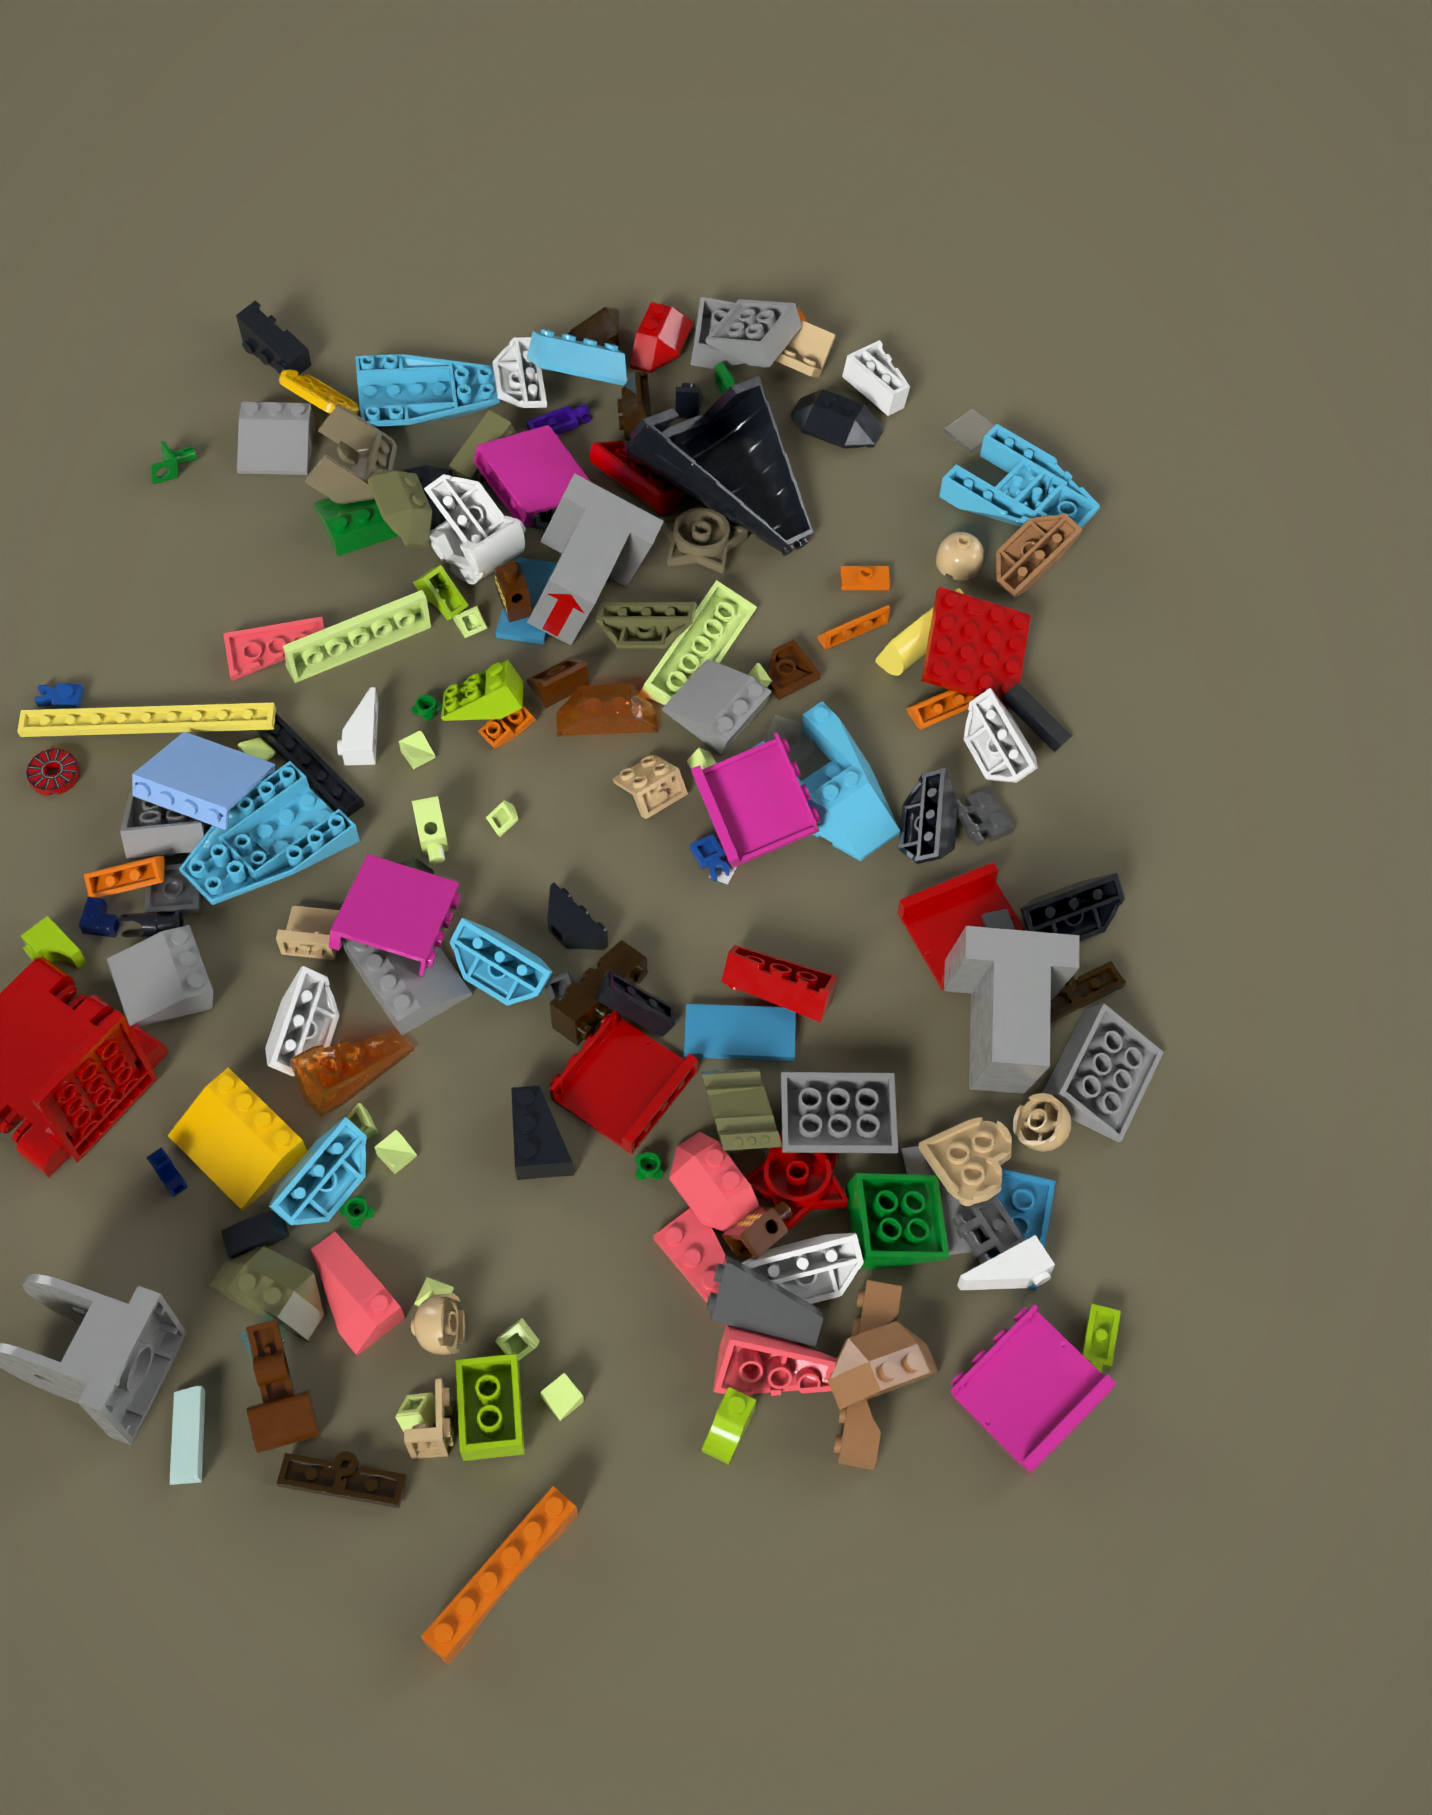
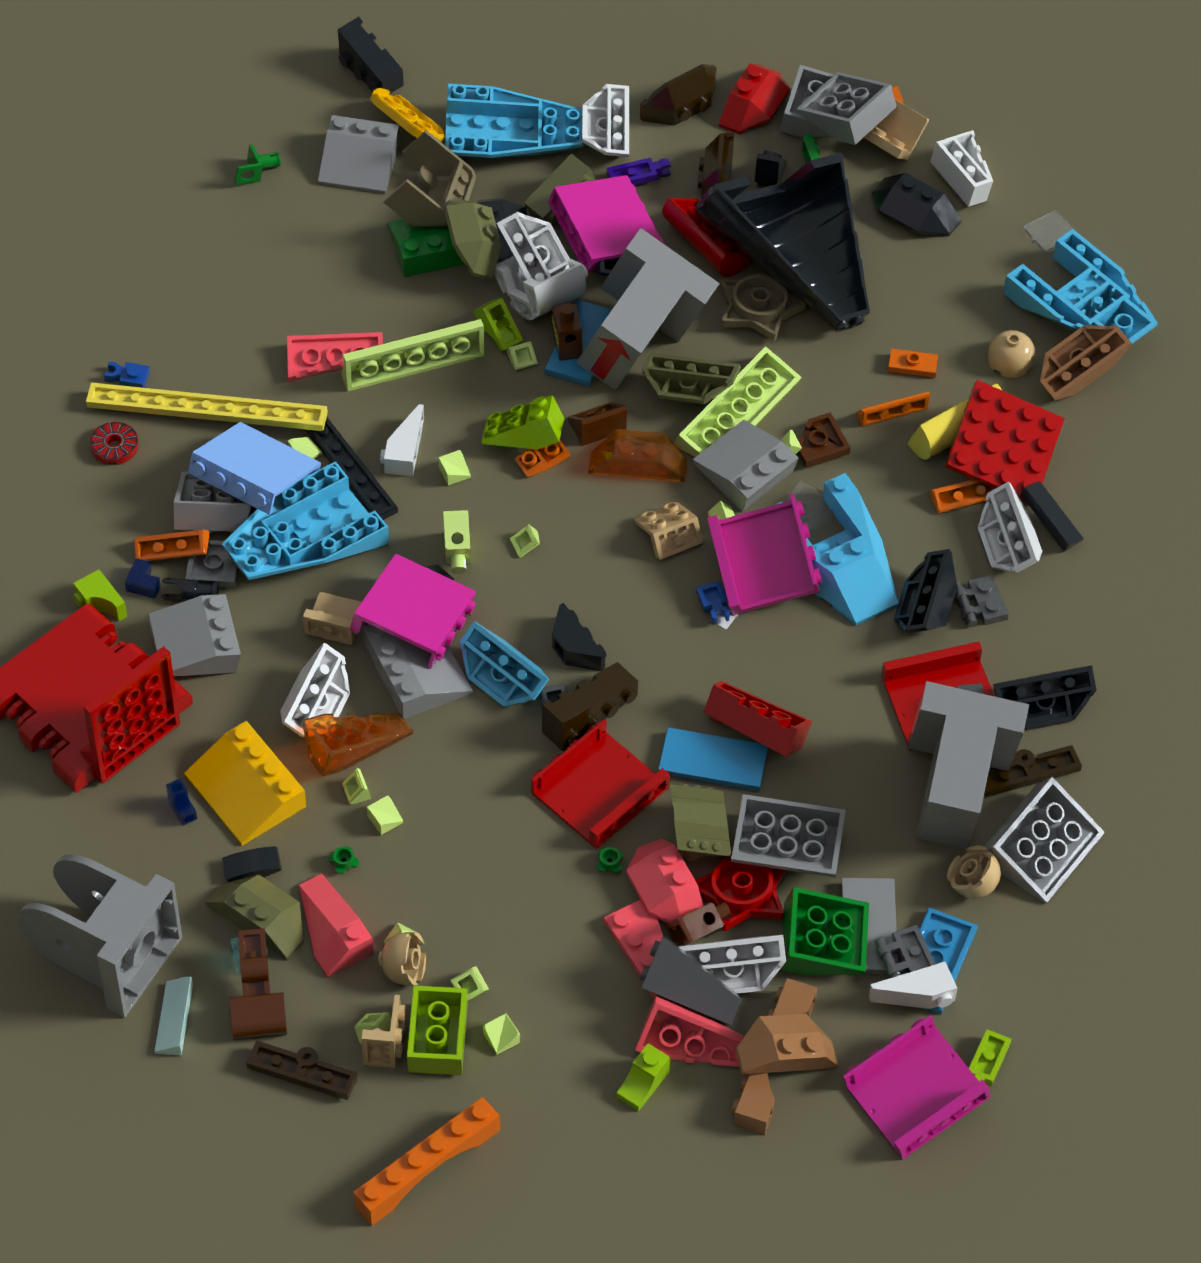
camera: 10 degrees right, 5 degrees down
(323, 1176) = (319, 824): medium azure wedge -> none
(429, 702) = (468, 429): green plate -> none
(537, 1140) = (512, 821): black wedge -> none
(577, 357) = (666, 111): medium azure slope -> none
(636, 1004) = (621, 719): black slope -> none
(969, 1159) = (901, 892): tan plate -> none

